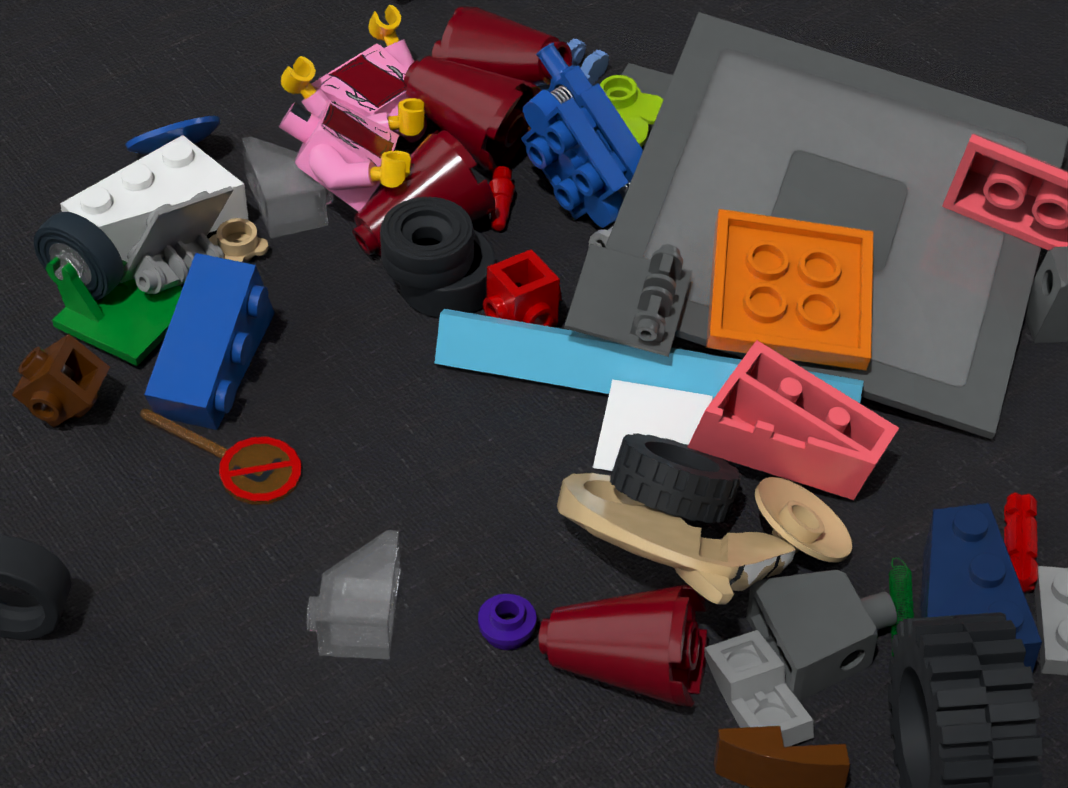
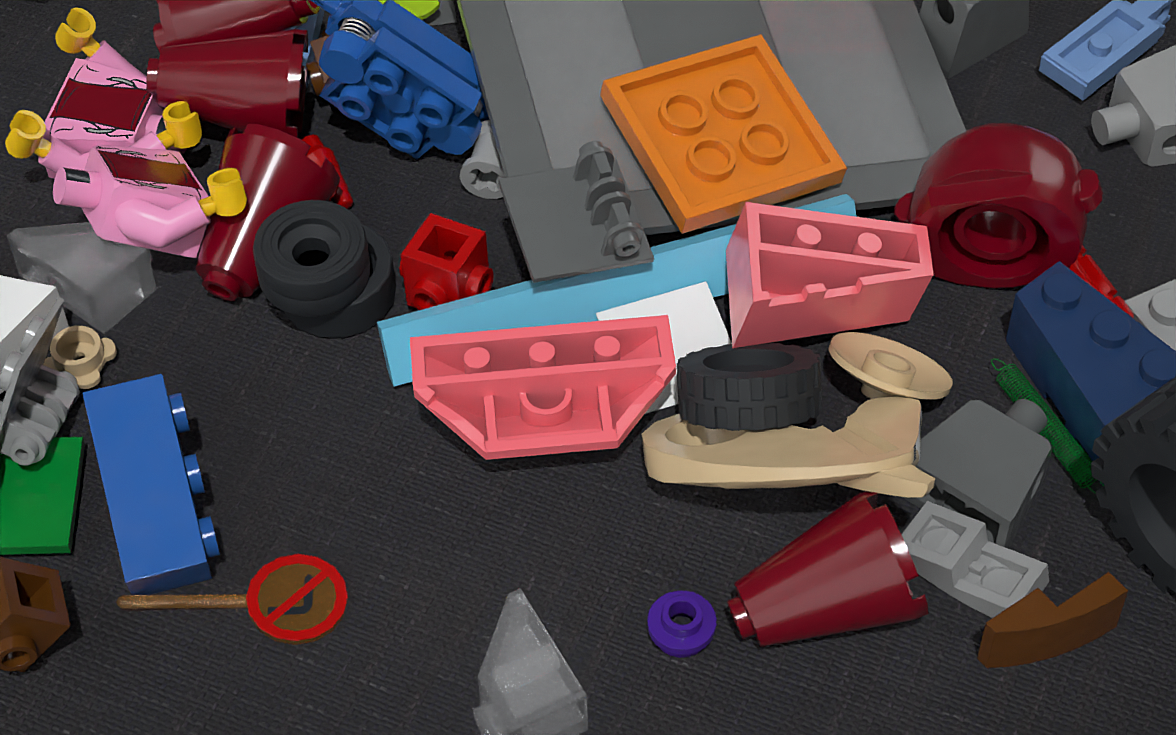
camera: 30 degrees left, 5 degrees up
(524, 403) = (544, 384): none -> coral wedge
(973, 440) = (1001, 205): none -> dark red piece

